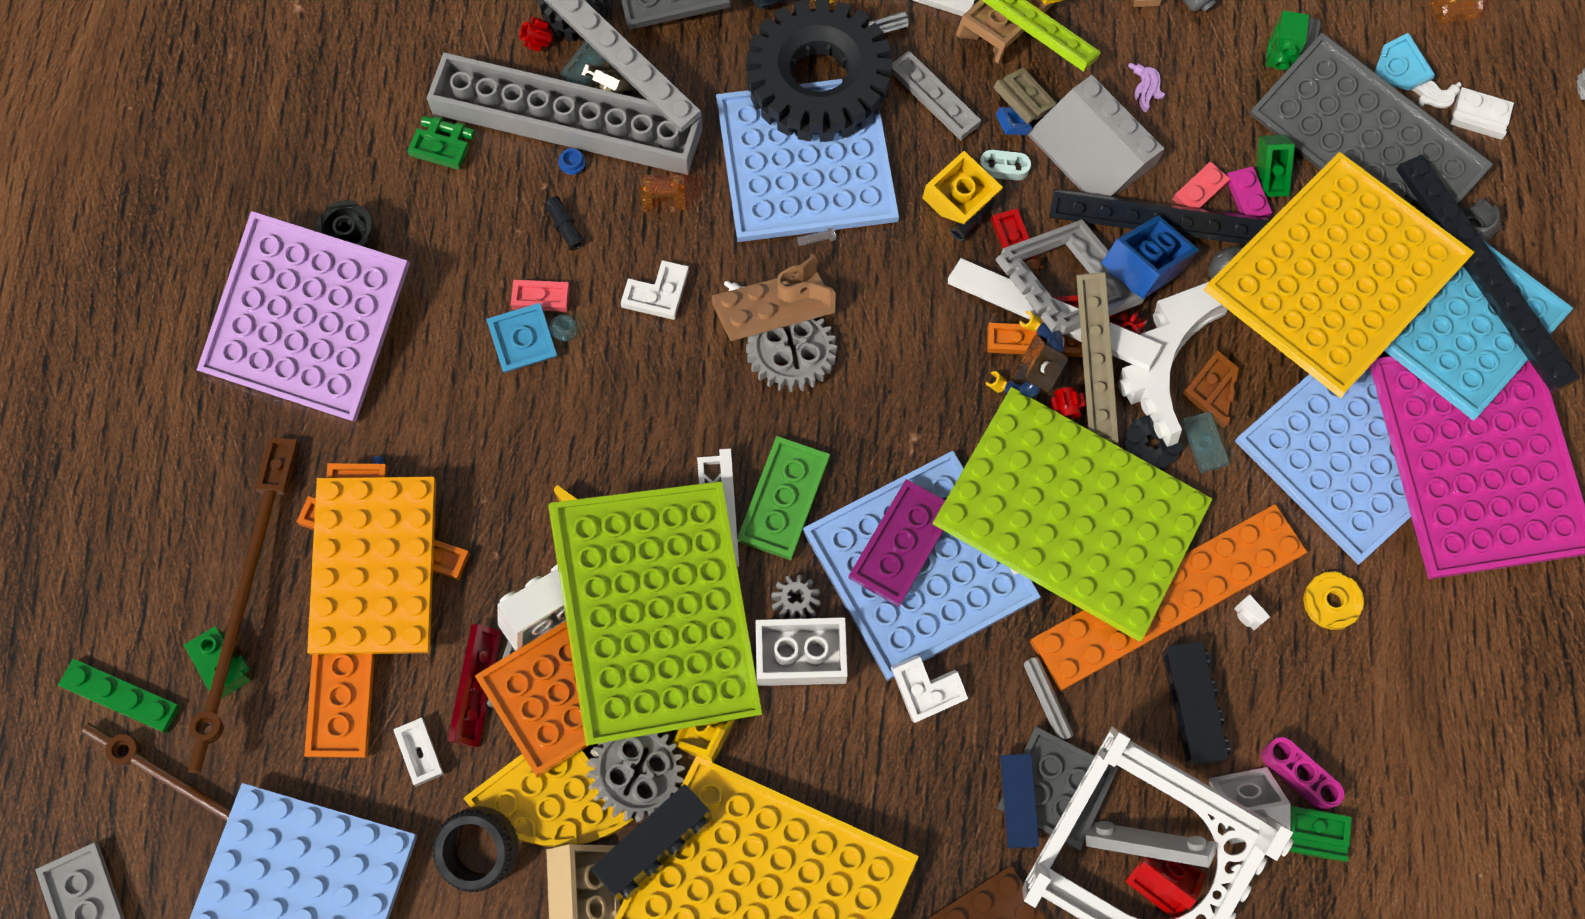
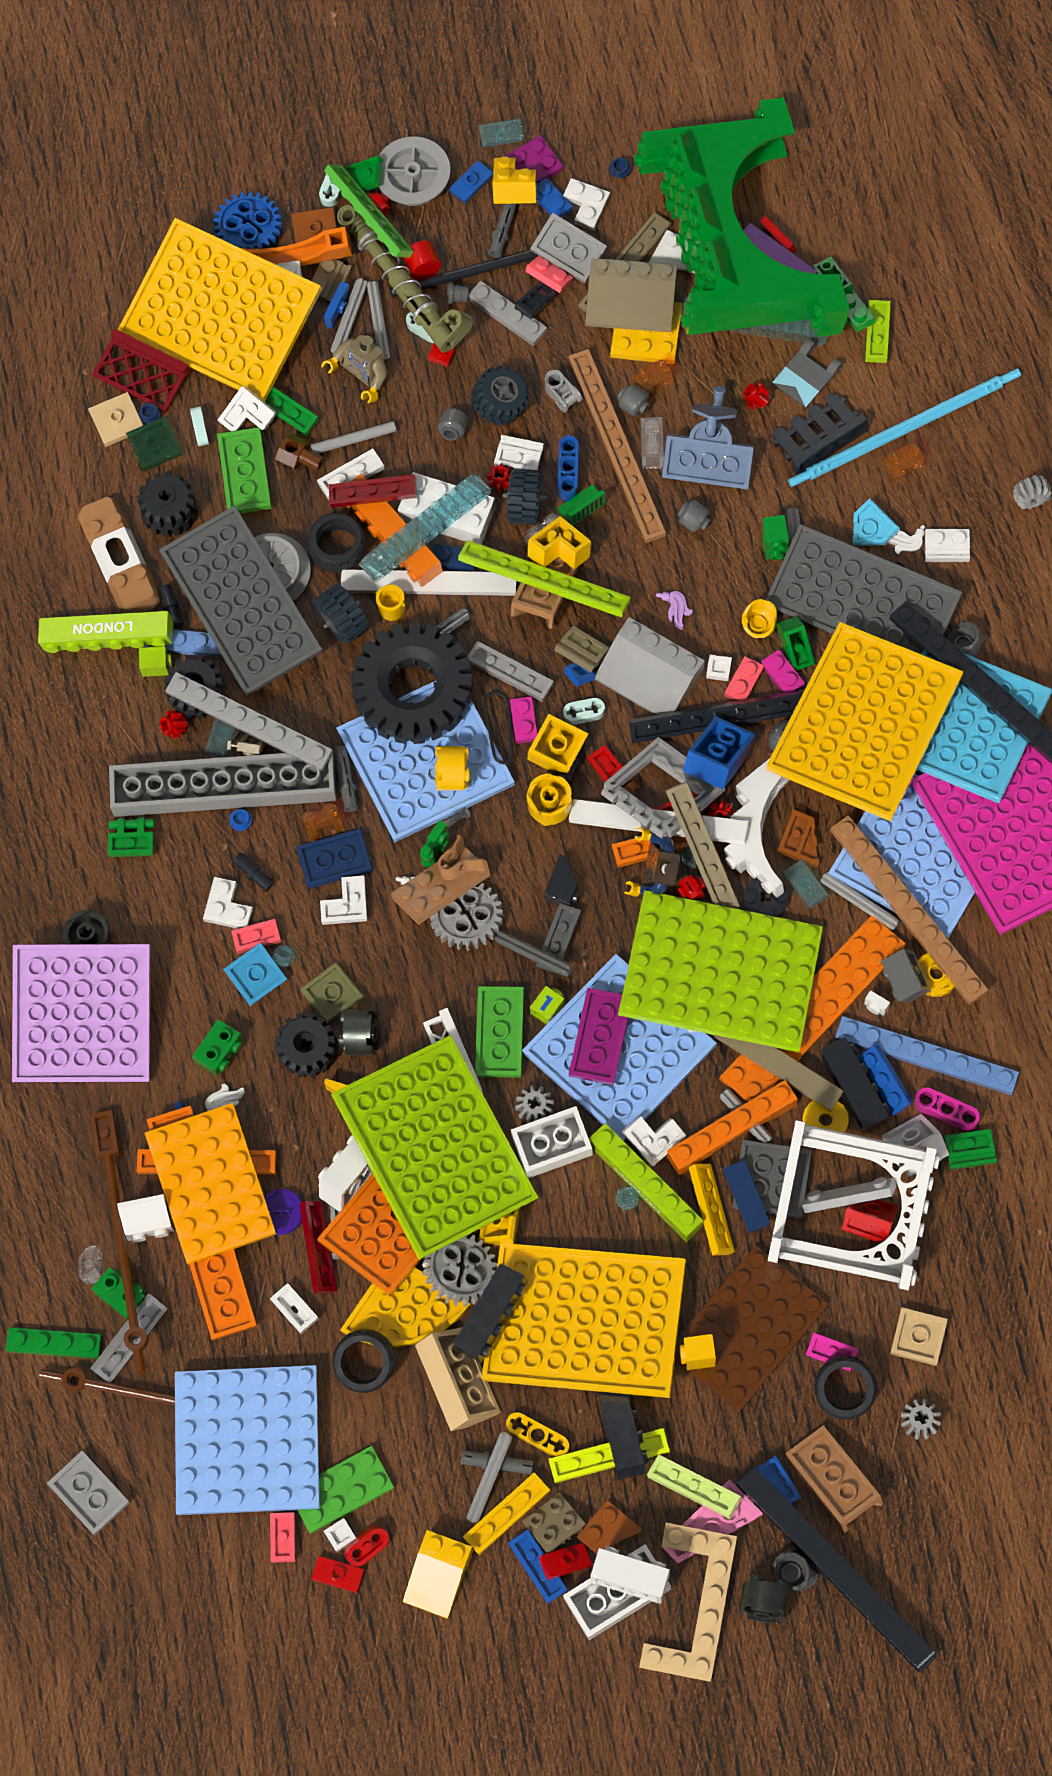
camera: 10 degrees left, 0 degrees up
(195, 616) = (90, 1265): none -> clear plate
(234, 704) = (117, 1353): none -> light grey plate
(280, 580) = (146, 1218): none -> white slope
(434, 468) = (223, 1098): none -> white piece
(447, 408) = (218, 1048): none -> green brick
(450, 626) = (284, 1210): none -> dark purple tile
(513, 251) = (221, 909): none -> white plate
(534, 432) = (300, 1032): none -> black wheel
(603, 389) = (331, 993): none -> olive tile
(617, 443) = (359, 1032): none -> pearl dark grey brick
(660, 236) = (334, 858): none -> dark blue tile
(705, 162) = (346, 788): none -> dark grey pin
(785, 254) = (436, 842): none -> green plate
(831, 175) = (451, 768): none -> yellow brick
(851, 484) = (547, 1004): none -> lime brick
(855, 418) = (533, 953): none -> dark grey axle
(870, 751) = (627, 1198): none -> clear light blue plate
(890, 149) = (489, 727): none -> black piece
(890, 411) = (560, 932): none -> dark grey plate
(900, 741) = (645, 1182): none -> lime brick
(915, 351) = (562, 885): none -> black slope
(932, 152) = (523, 720): none -> dark pink plate
(932, 248) = (555, 789): none -> yellow brick
(970, 801) = (711, 1209): none -> yellow plate
(1024, 706) = (746, 1117): none -> orange arch
(1075, 366) = (688, 858): none -> clear light blue plate
(1118, 660) = (788, 1069): none -> dark tan tile
(1156, 722) = (838, 1115): none -> yellow tile
(1176, 165) = (719, 667): none -> white plate
(1237, 711) = (886, 1080): none -> blue plate
(1242, 123) = (759, 618): none -> yellow hair
(1265, 483) = (860, 901): none -> light grey axle
(1296, 591) = (905, 976): none -> dark grey brick
(1297, 699) = (928, 1056): none -> medium blue plate
(1325, 515) = (909, 910): none -> medium nougat plate

